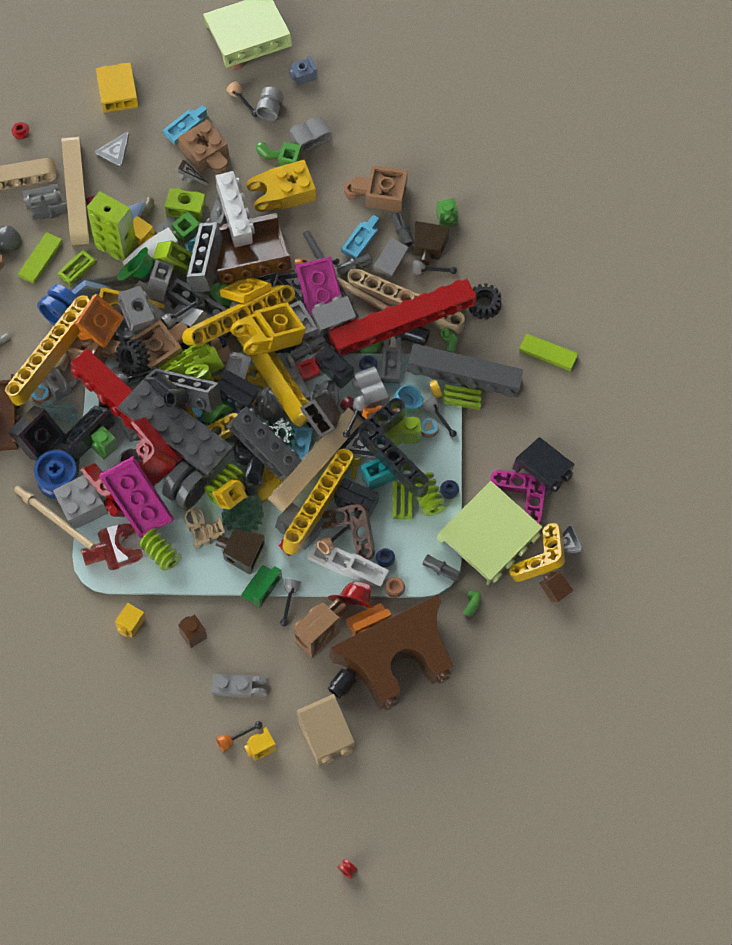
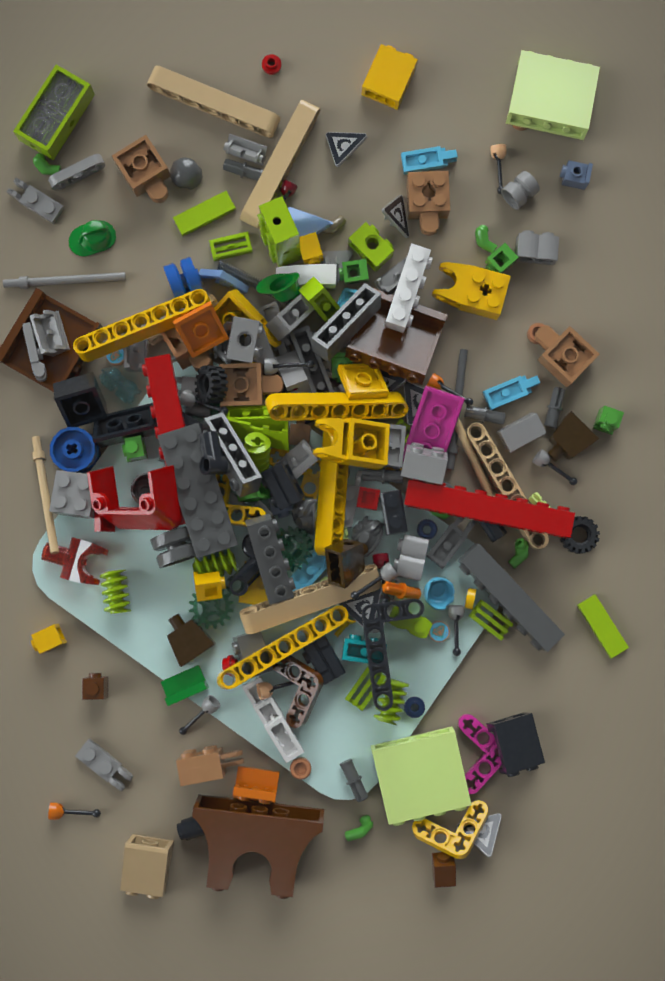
camera: 30 degrees right, 20 degrees up
(136, 496) = (120, 533): dark pink tile -> none
(205, 531) = (166, 598): tan piece -> none
(260, 745) = (83, 837): yellow brick -> none
(355, 594) = (257, 754): red piece -> none
(382, 553) = (311, 741): dark blue plate -> none

